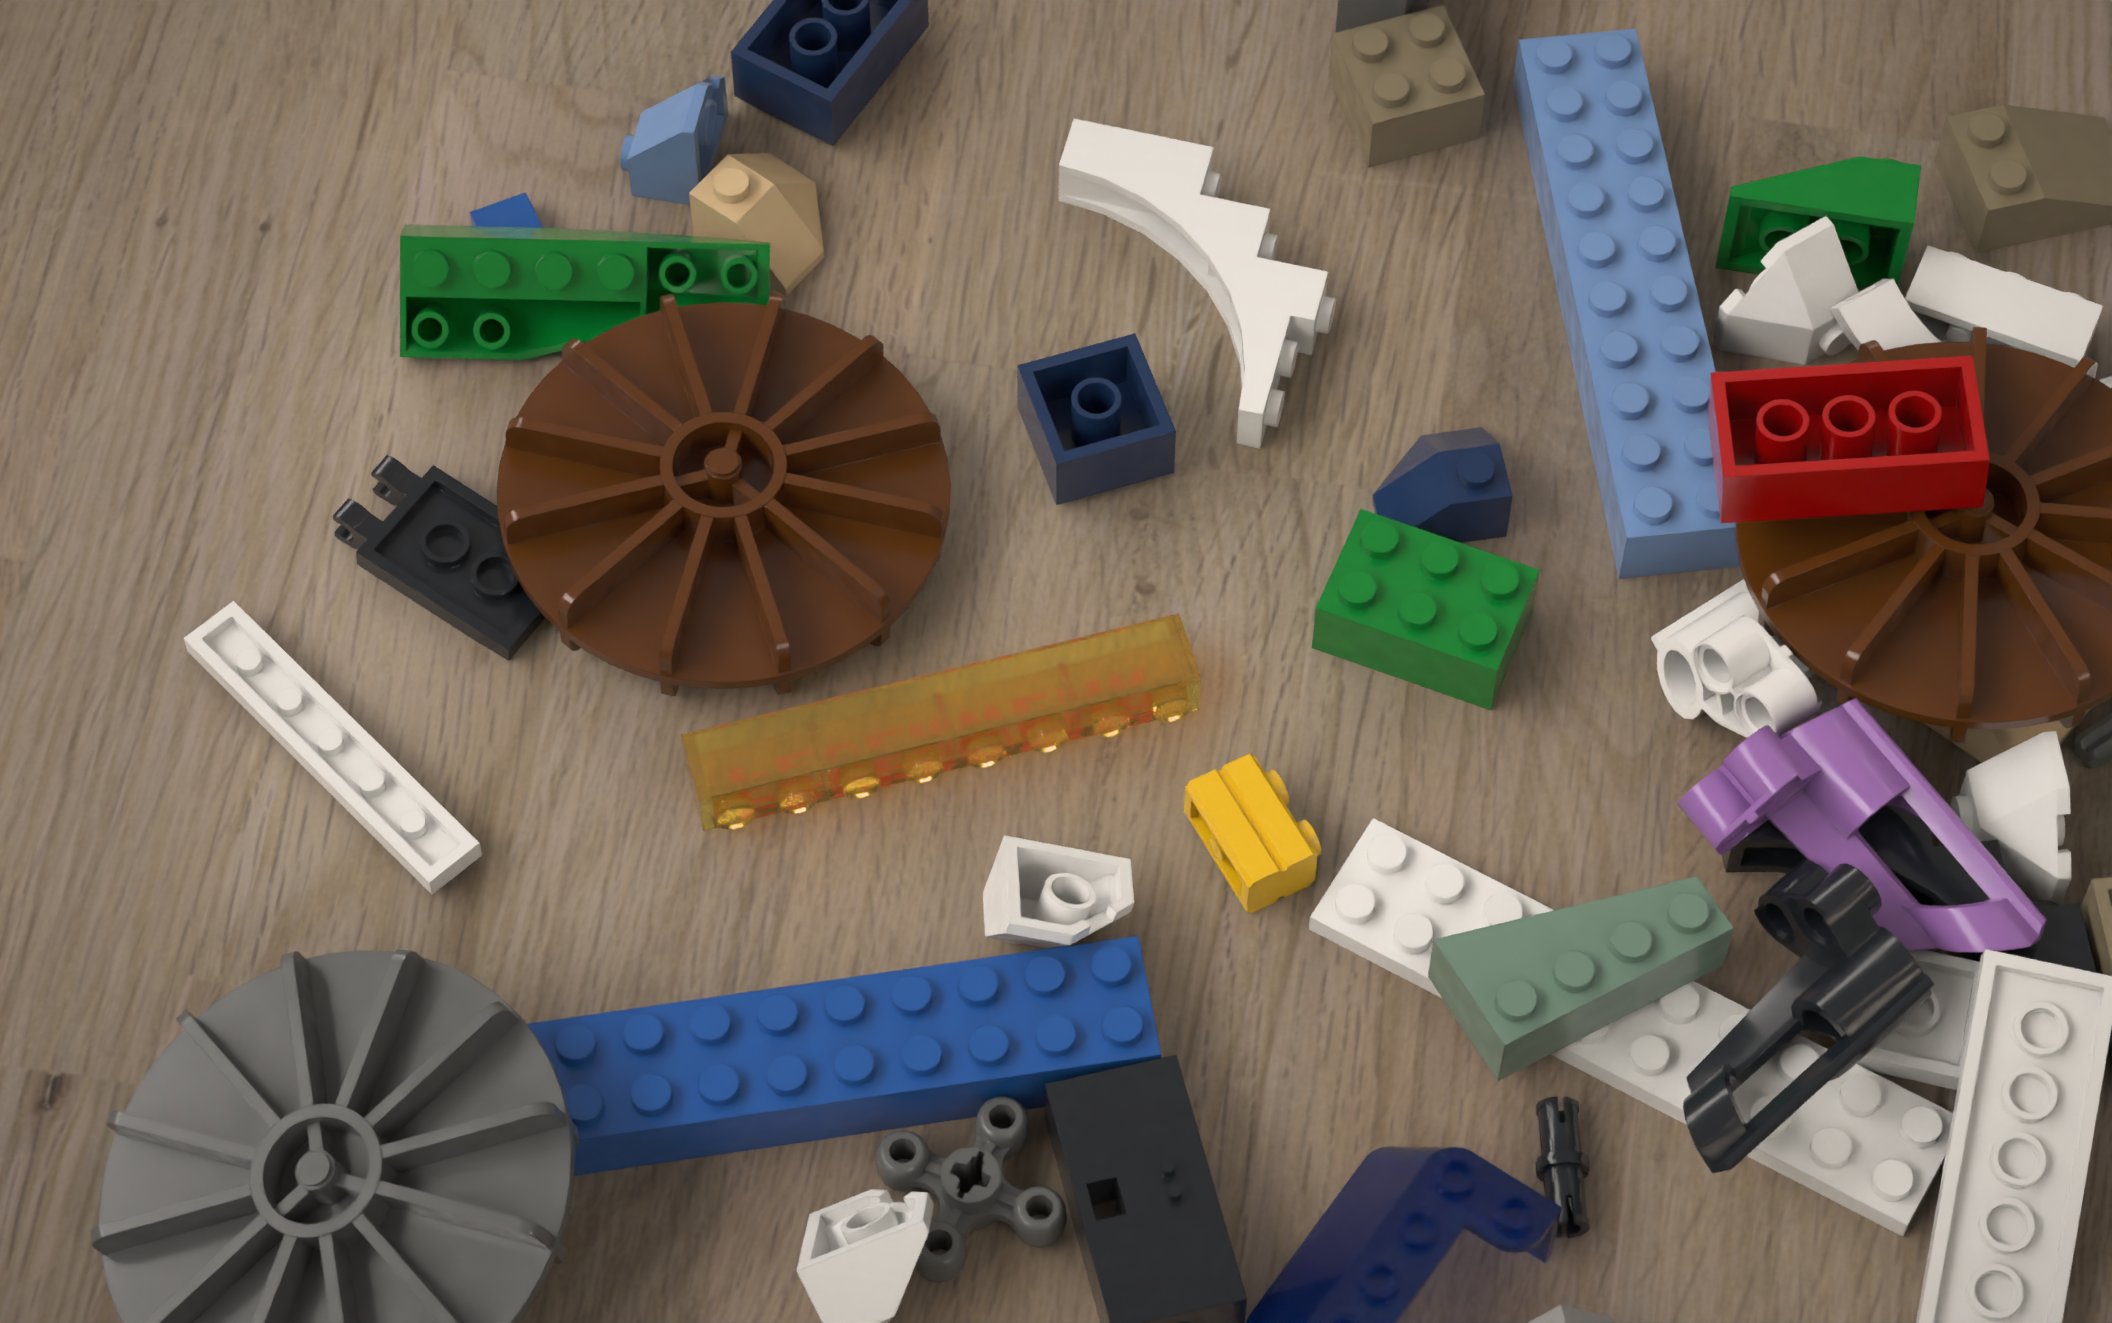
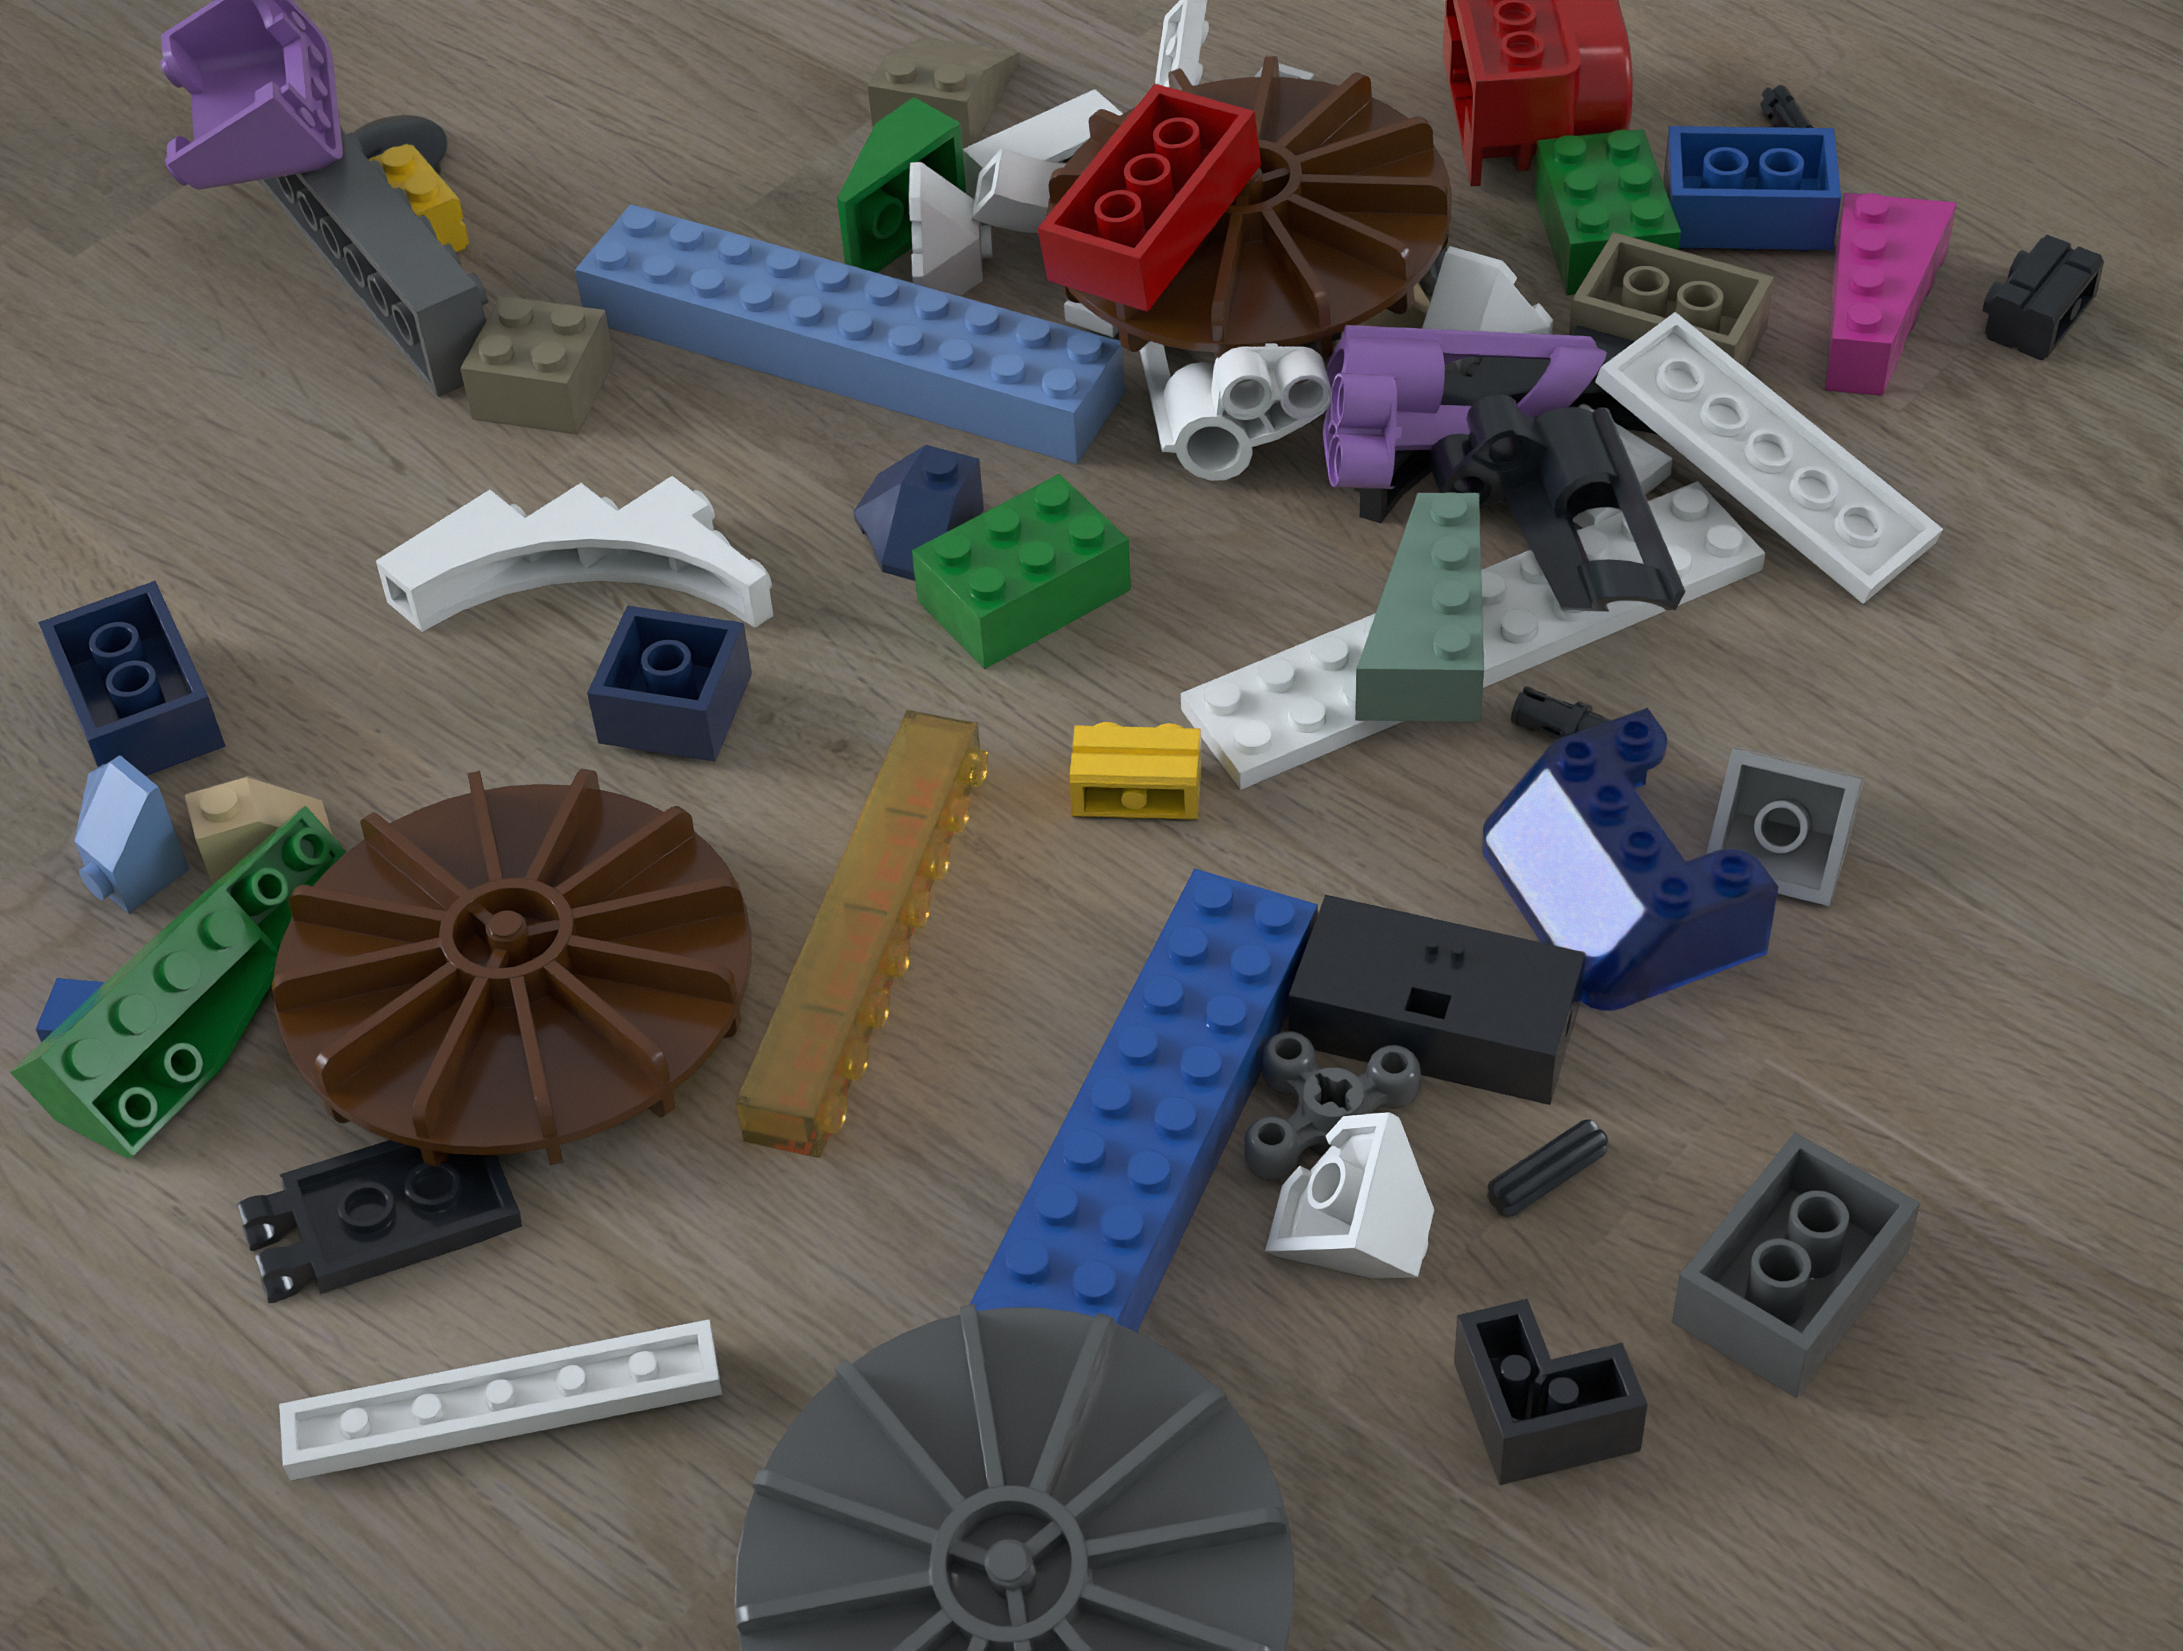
camera: 55 degrees left, 10 degrees down
(1053, 893) = (1103, 918): white slope -> none

